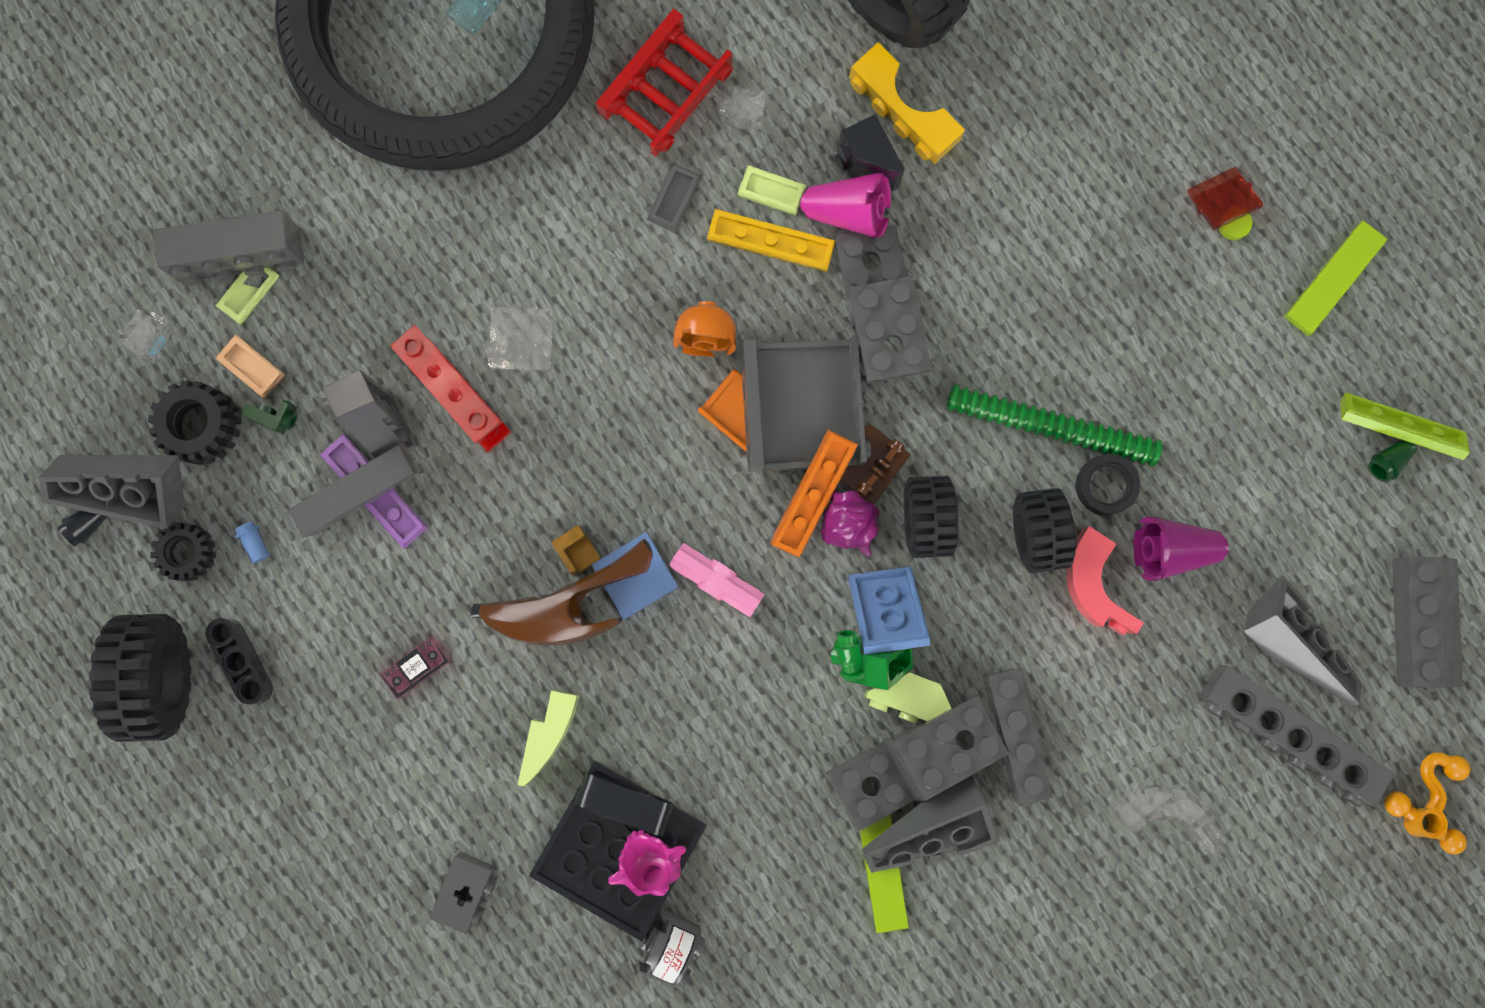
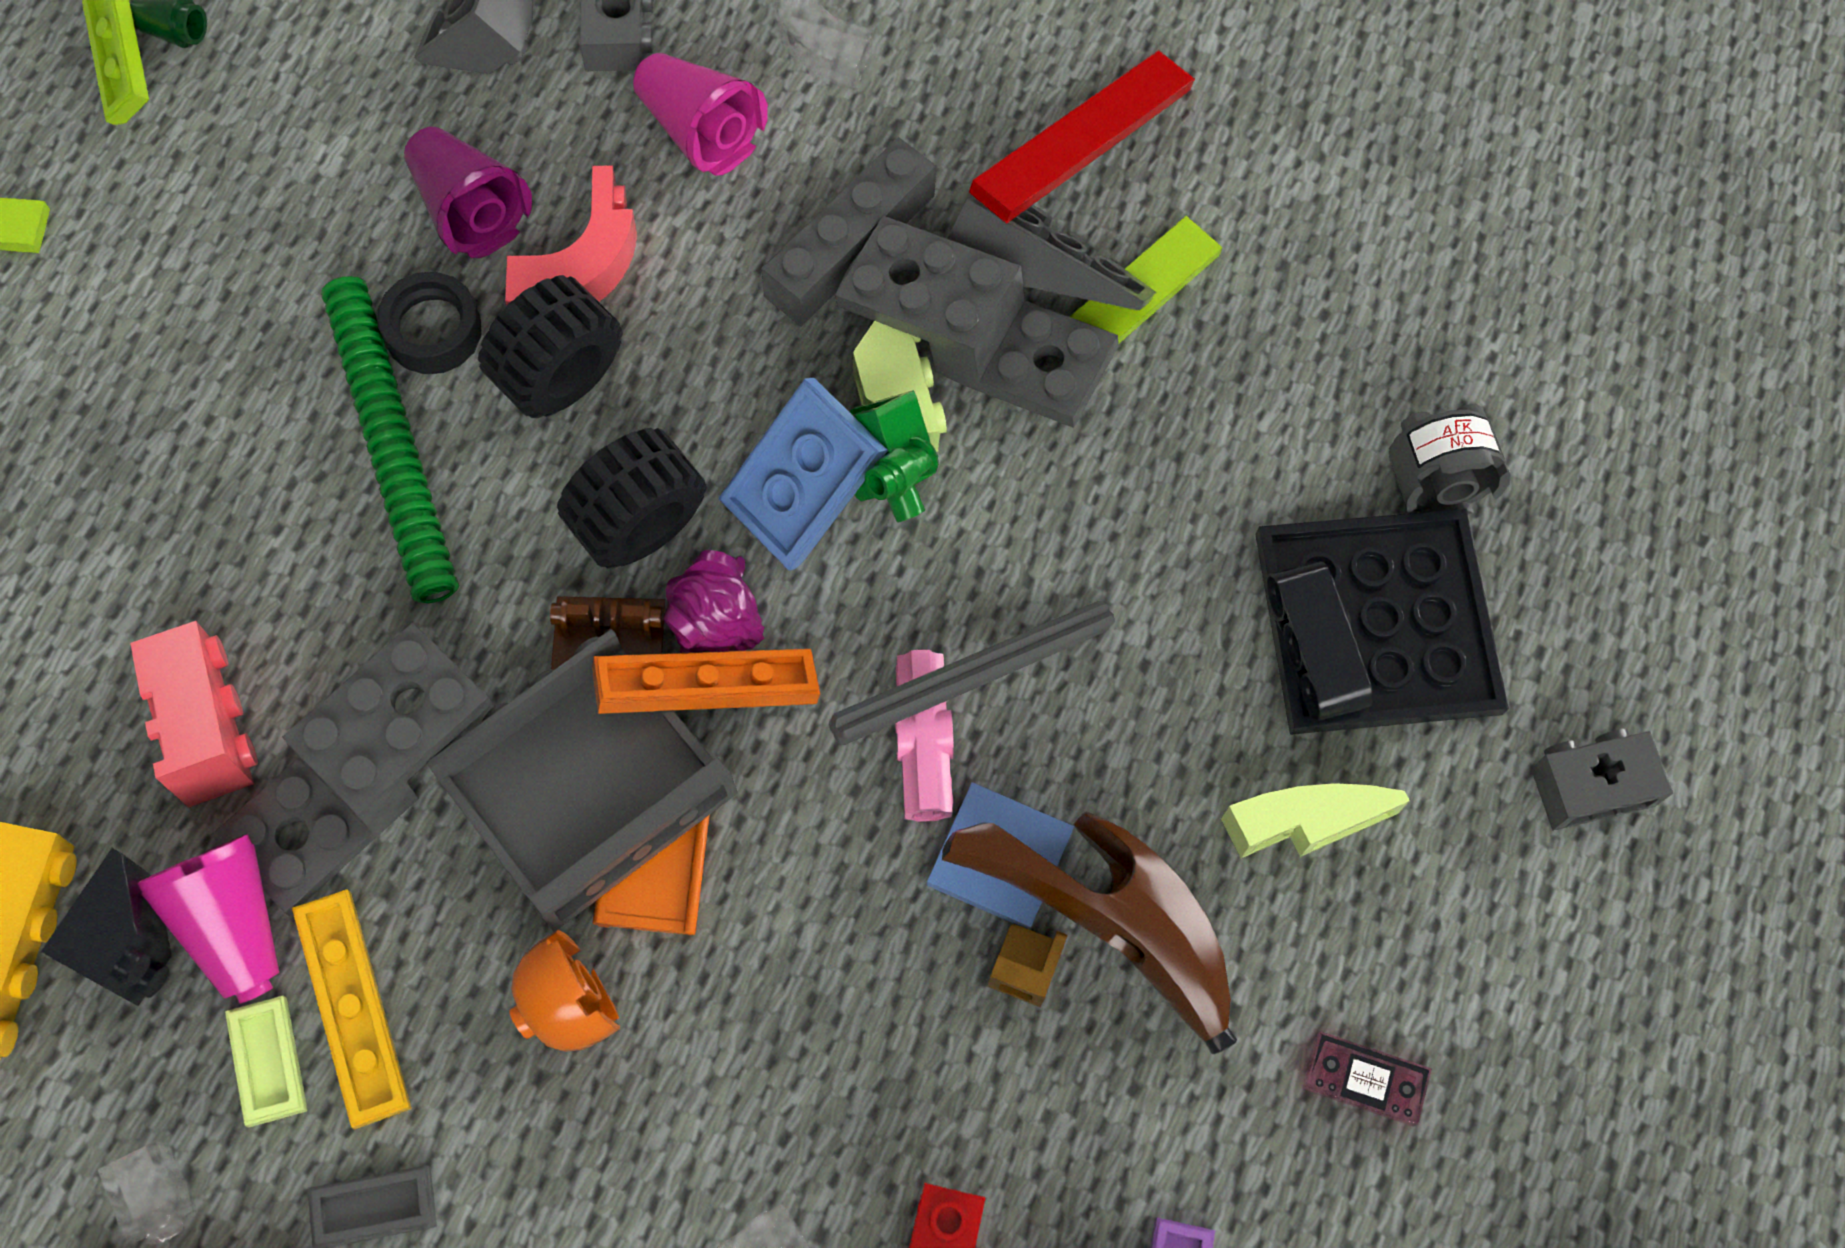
camera: 130 degrees left, 15 degrees down
(647, 865) = (1372, 549): dark pink hair -> none
(727, 622) = (970, 672): none -> dark grey axle
(962, 248) = (193, 714): none -> coral wedge
(989, 903) = (1080, 137): none -> red tile
(1145, 705) = (702, 110): none -> dark pink cone

